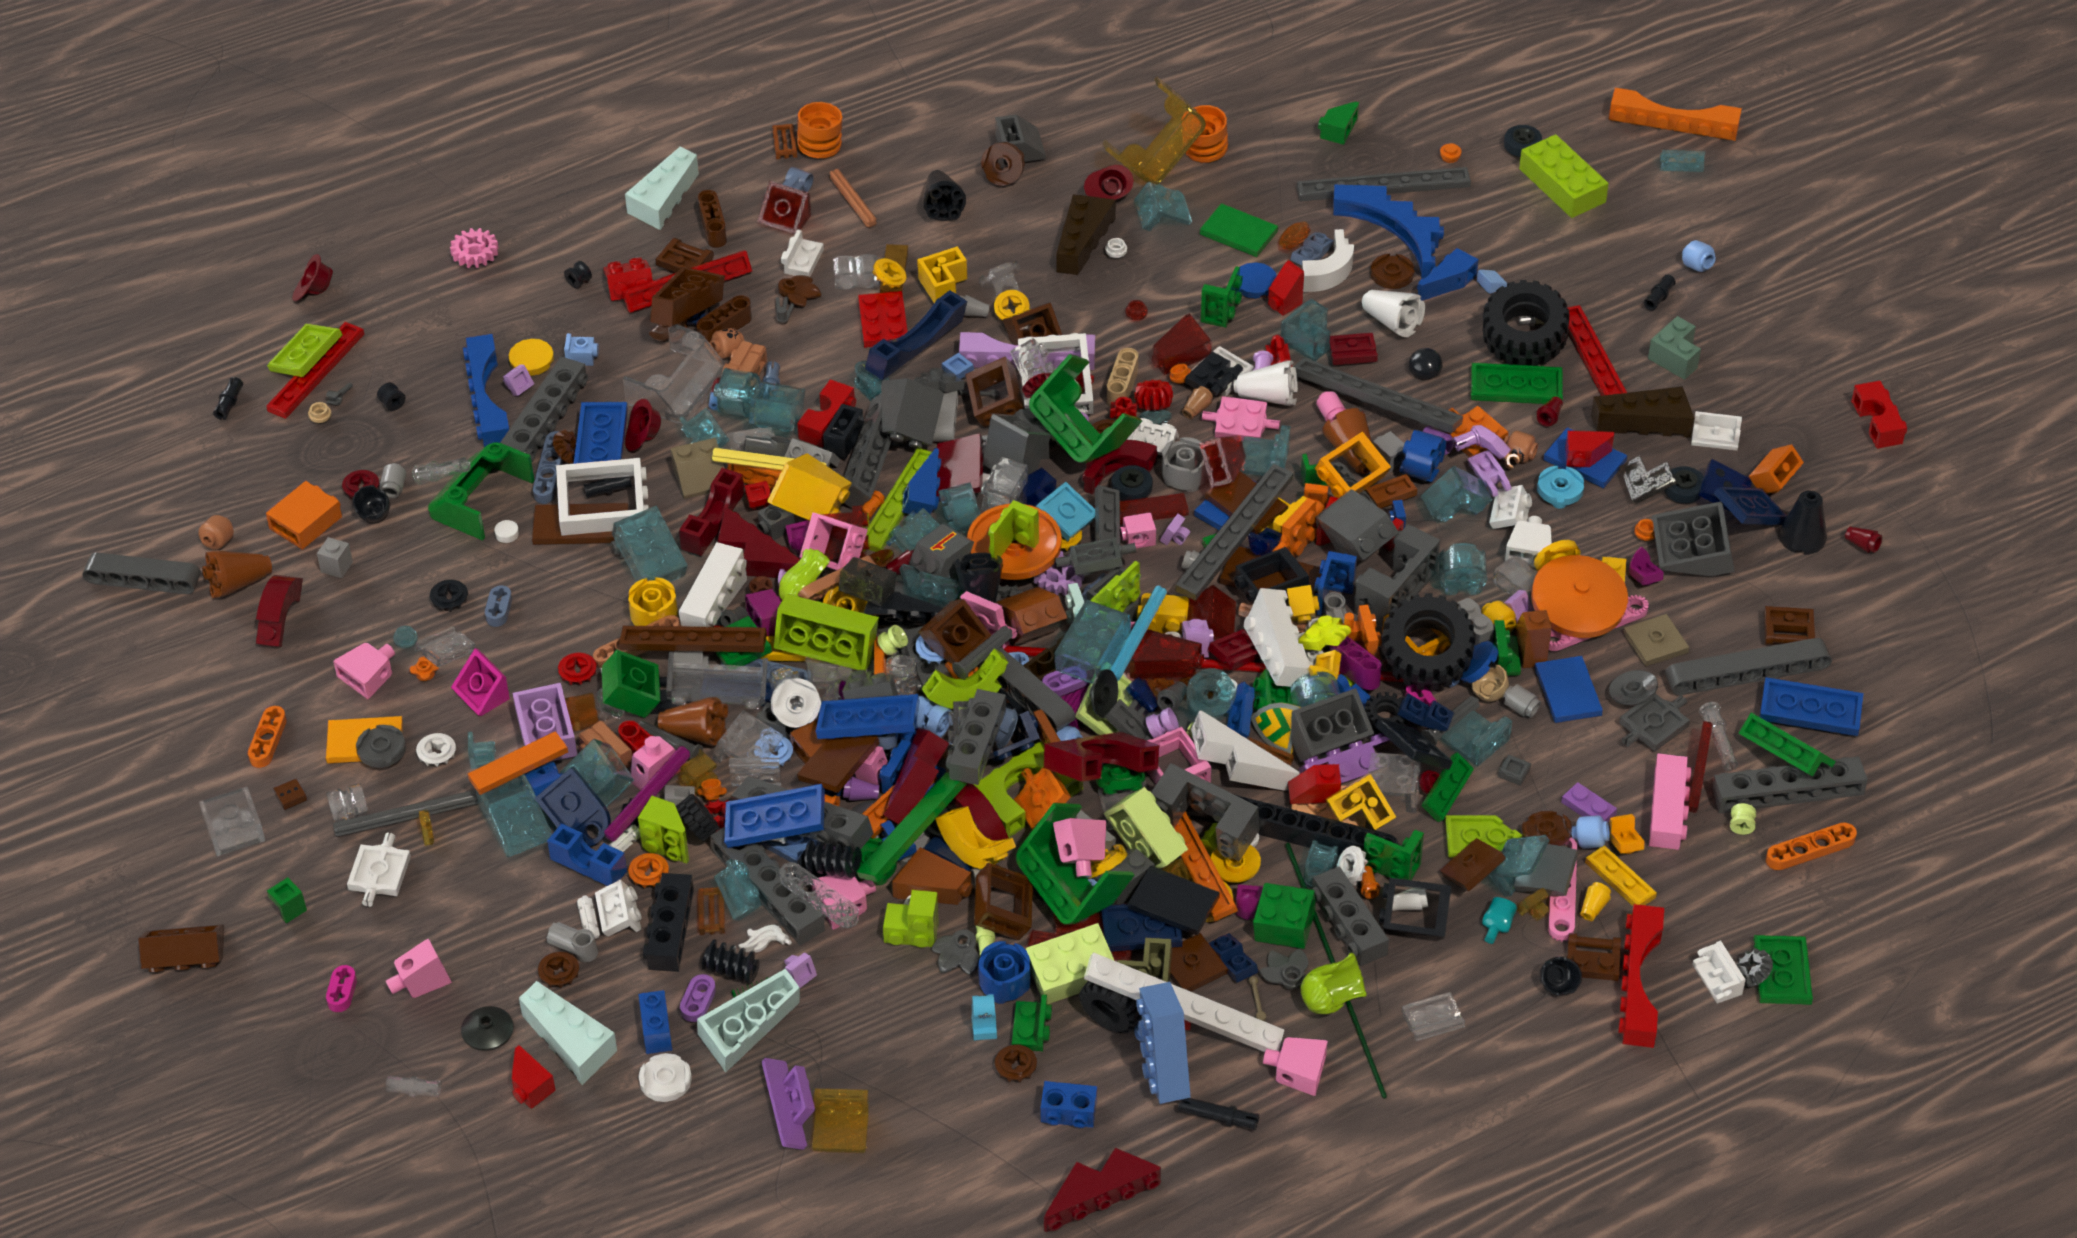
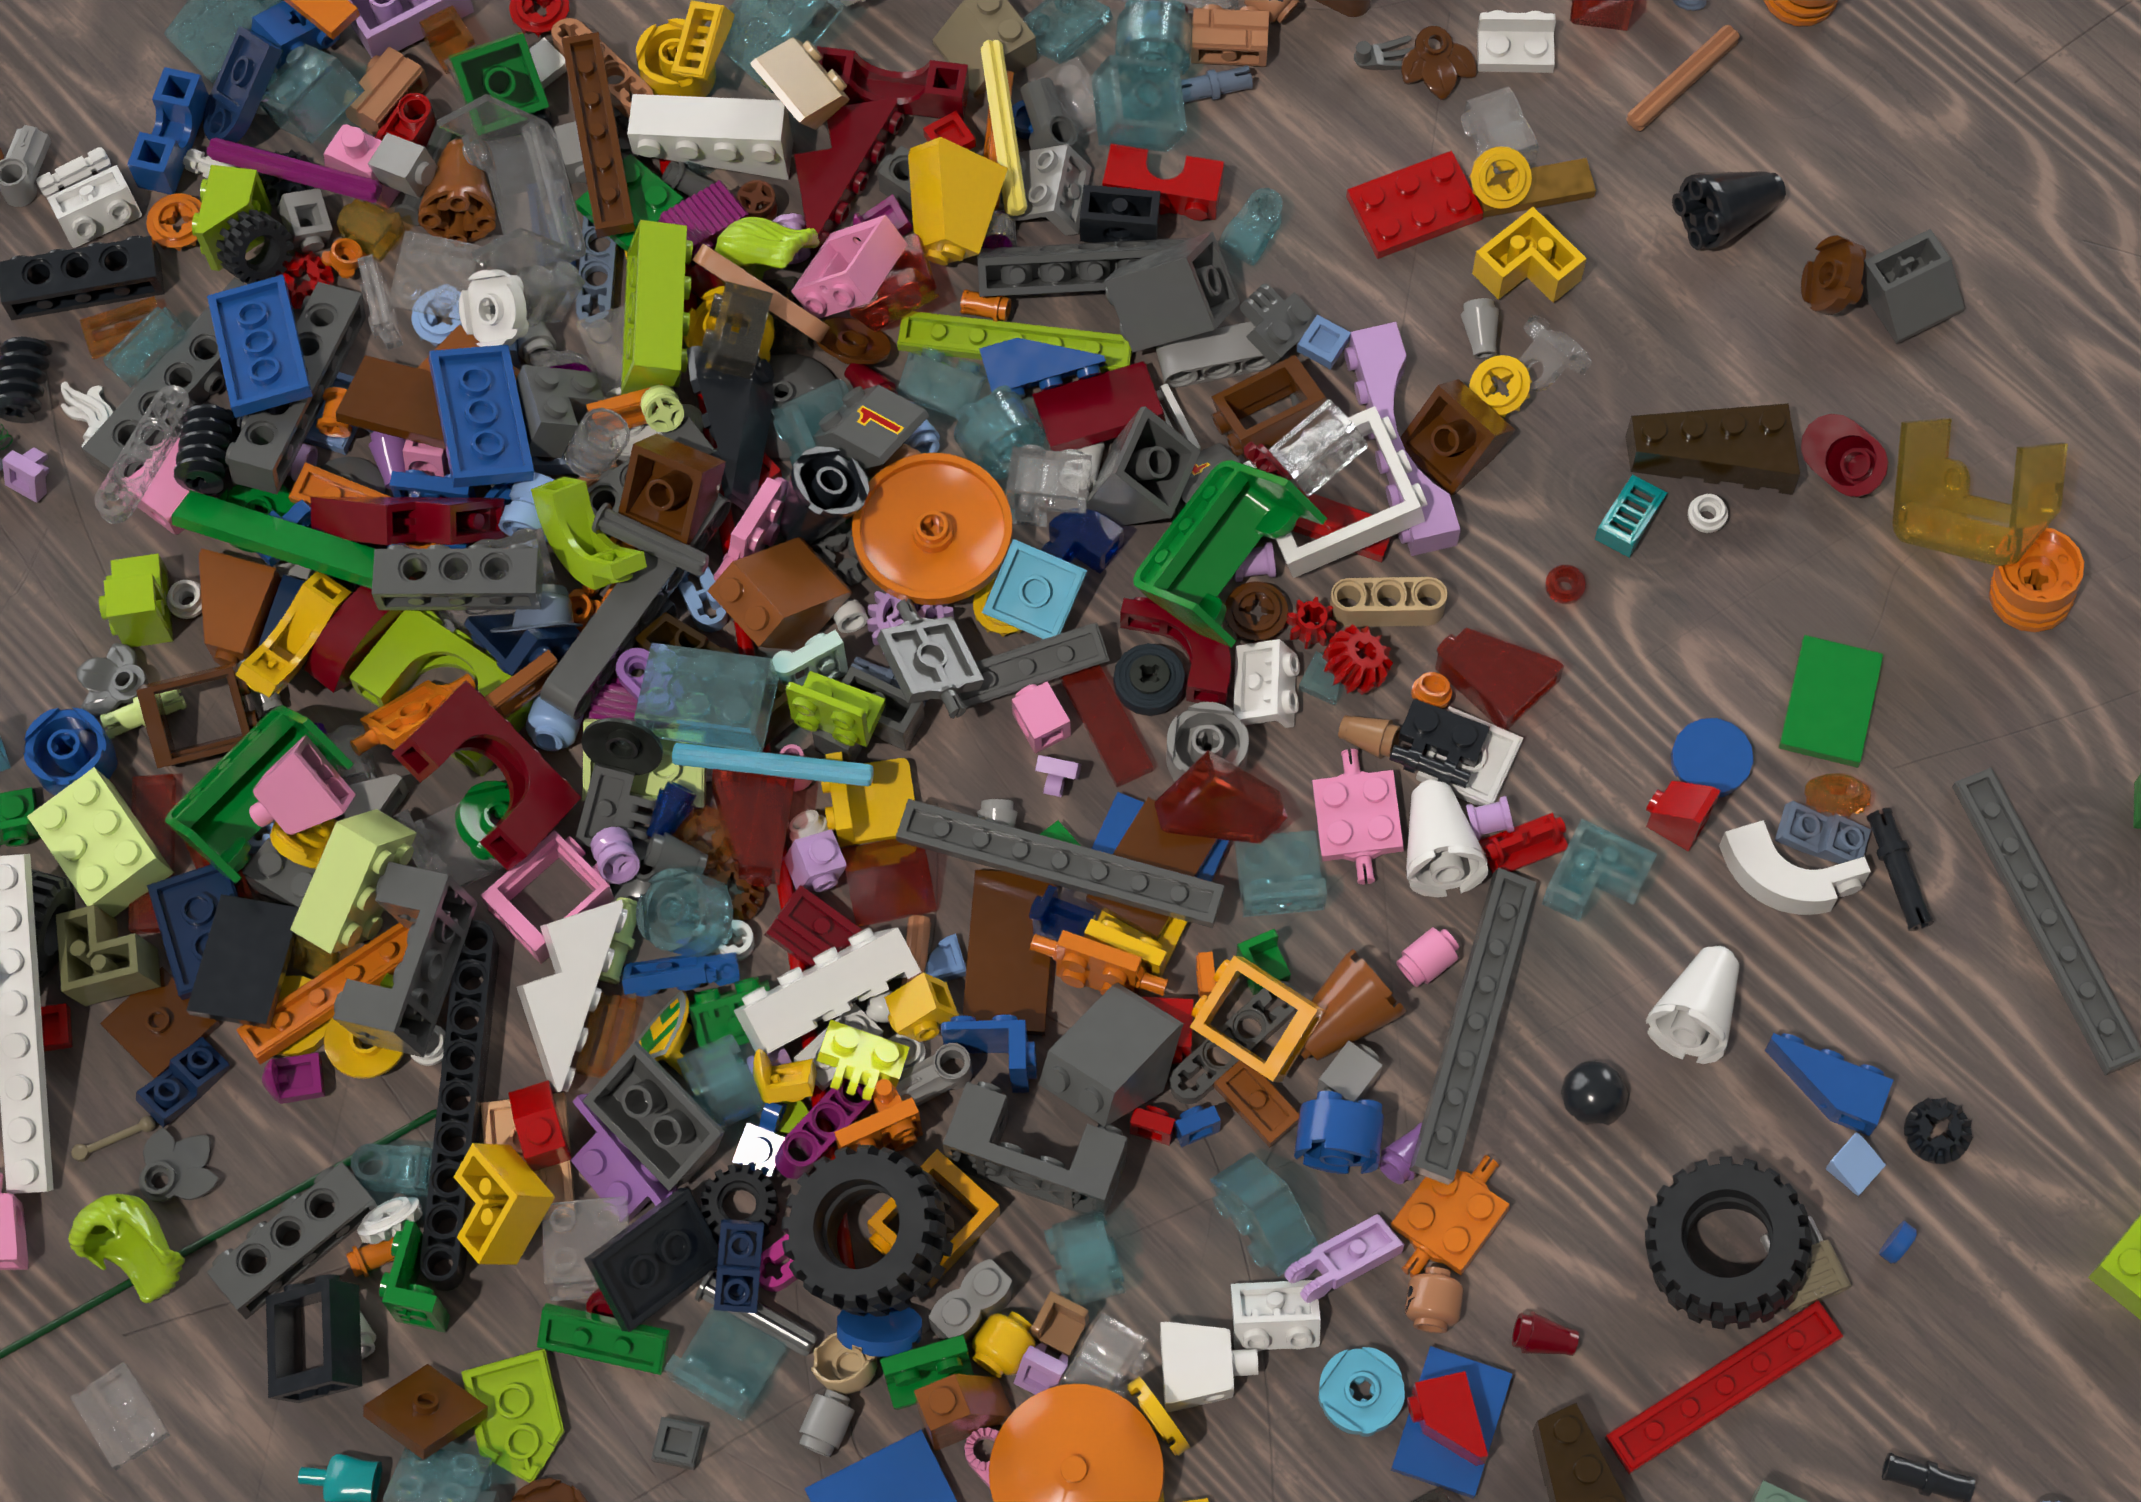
camera: 75 degrees right, 20 degrees up
(645, 559) = (694, 26): none -> yellow slope
(676, 729) = (403, 165): none -> light grey brick
(701, 534) = (801, 81): none -> tan slope
(890, 355) = (1407, 279): dark blue arch -> none
(1015, 523) = (911, 501): lime bracket -> none
(1119, 278) = (1615, 537): none -> teal slope
(1159, 201) = (1838, 562): clear light blue bracket -> none
(1219, 303) = (1614, 723): green bracket -> none
(1268, 564) = (998, 978): black window -> none
(1284, 915) = (265, 1138): green brick -> none
(1349, 226) = (1894, 854): none -> black pin
(1353, 348) = (1589, 959): dark red plate -> none
(1392, 271) = (1820, 985): reddish brown tile -> none
(1398, 217) = (1927, 1010): blue arch -> none
(1481, 253) = (1939, 1149): none -> black gear
(1487, 439) = (1408, 1237): lavender arm -> none
(1489, 591) = (1060, 1324): none -> medium nougat panel
(1515, 383) = (1603, 1264): green tile -> none
(1537, 272) = (1898, 1242): none -> blue tile

